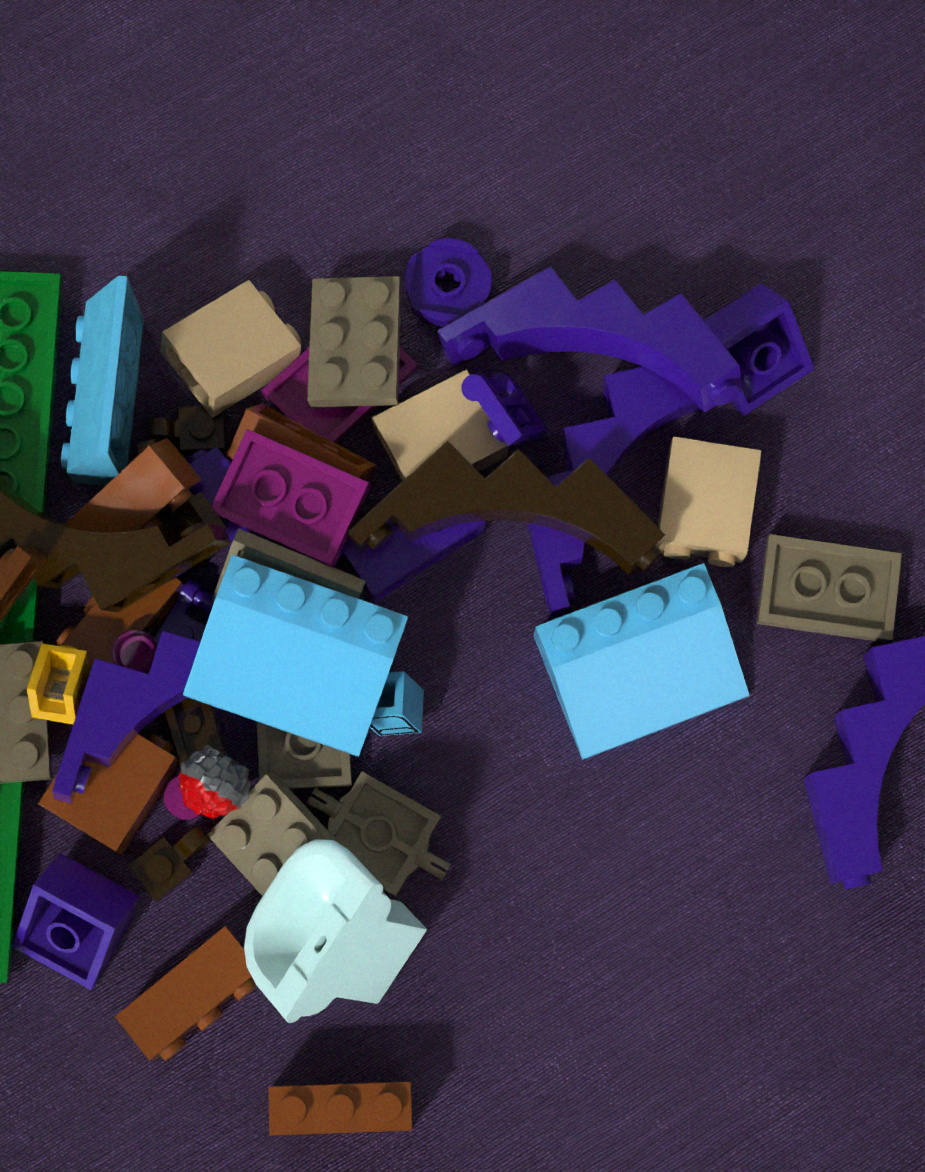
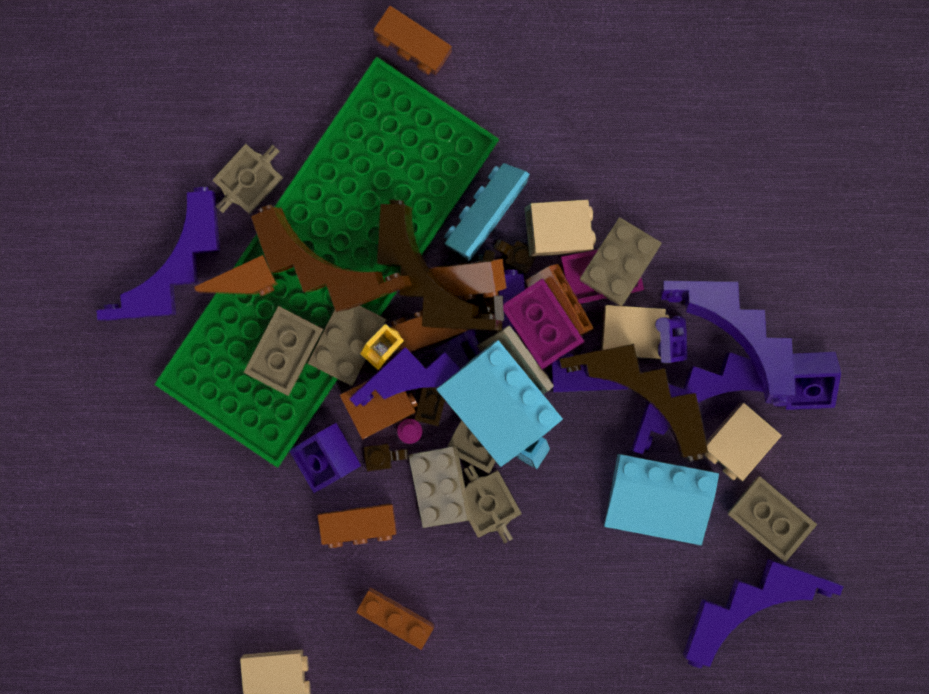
camera: 30 degrees right, 10 degrees up
(134, 650) = (425, 351): magenta plate -> none
(213, 783) = (425, 436): dark grey piece -> none
(326, 933) = (435, 538): light aqua piece -> none
(433, 263) = (670, 259): dark purple plate -> none

